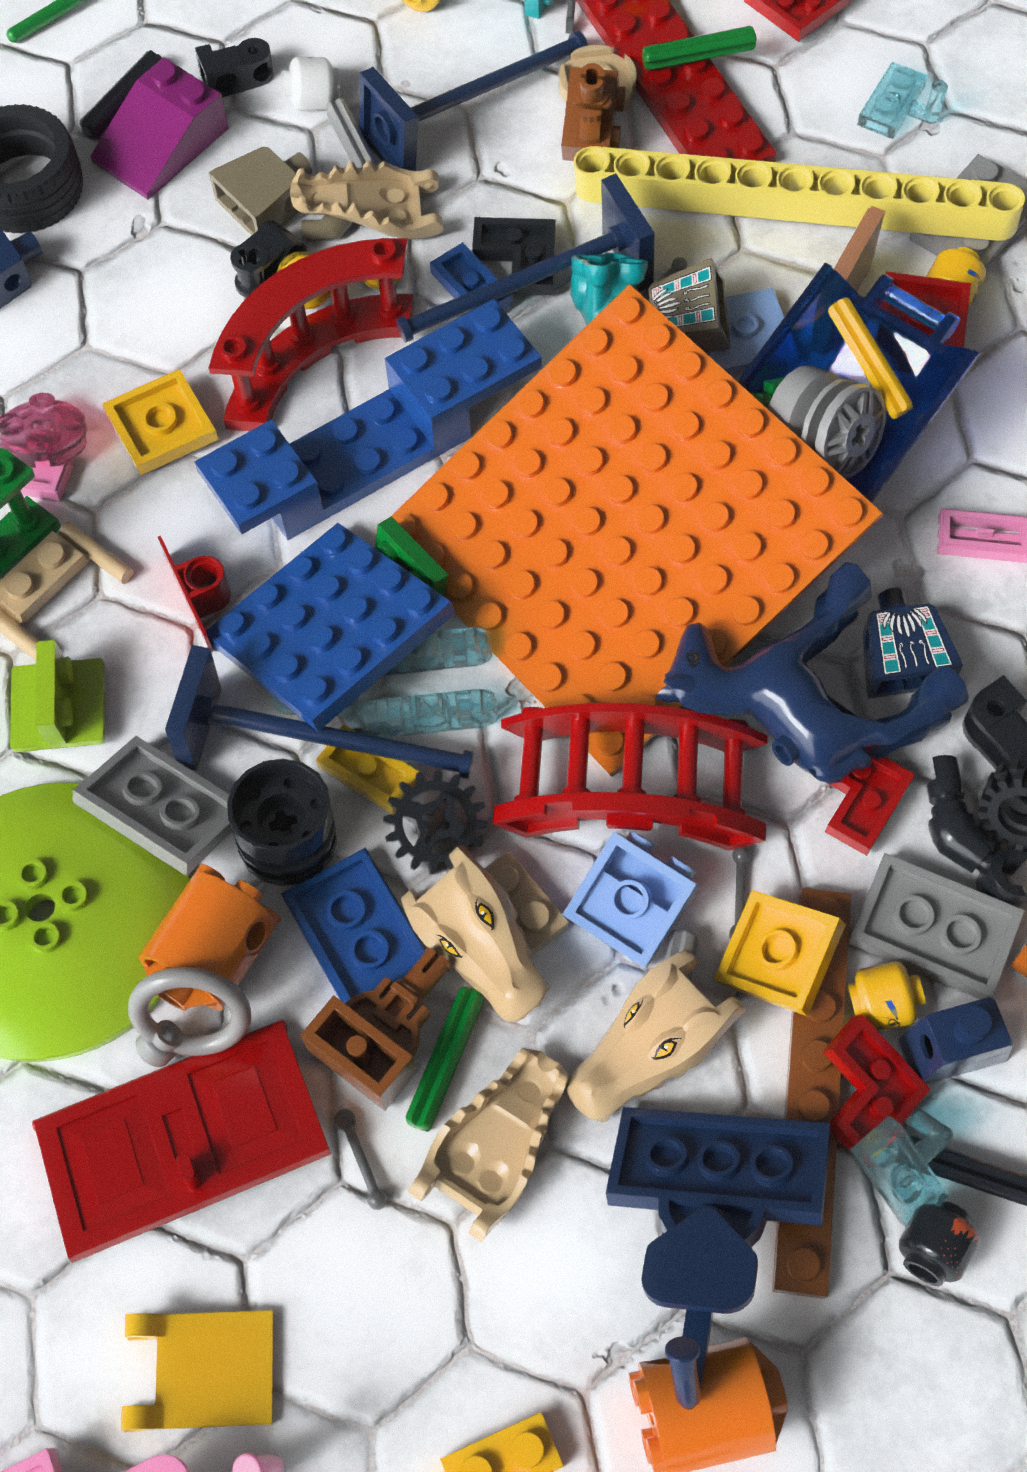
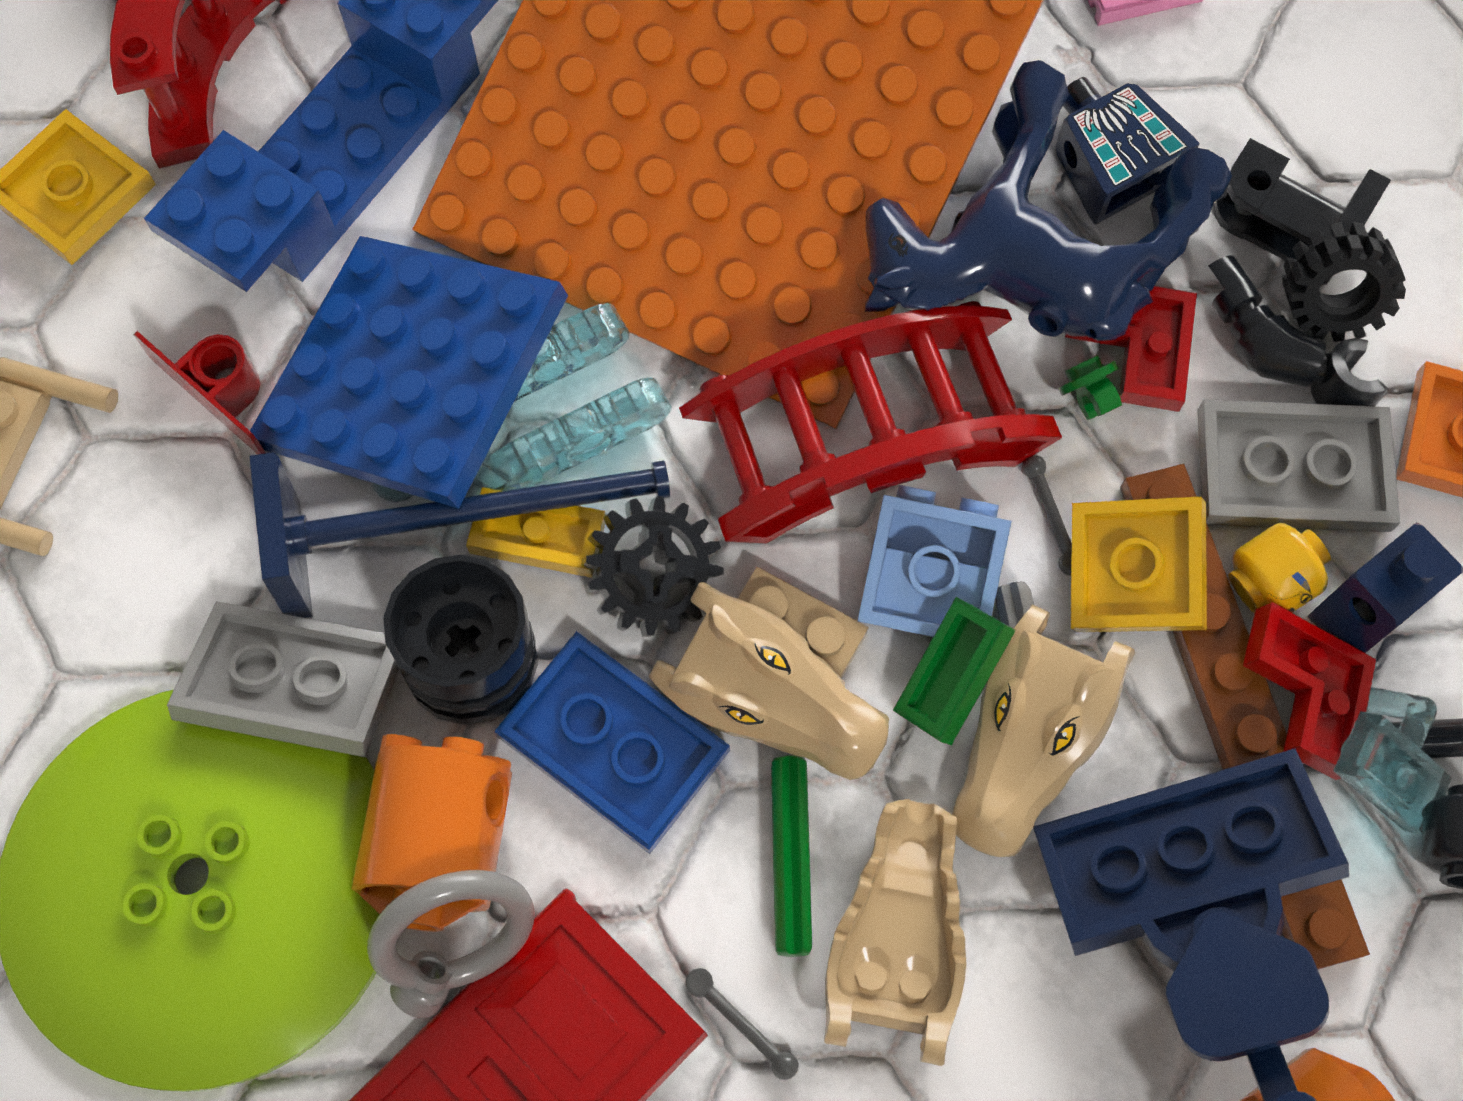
camera: 25 degrees left, 5 degrees up
(57, 701) = (89, 597): lime bracket -> none
(377, 1031) = (694, 867): dark orange brick -> none
(405, 551) = (463, 239): green plate -> none
(612, 974) = (953, 671): none -> green tile
(807, 812) = (1094, 391): none -> green plate

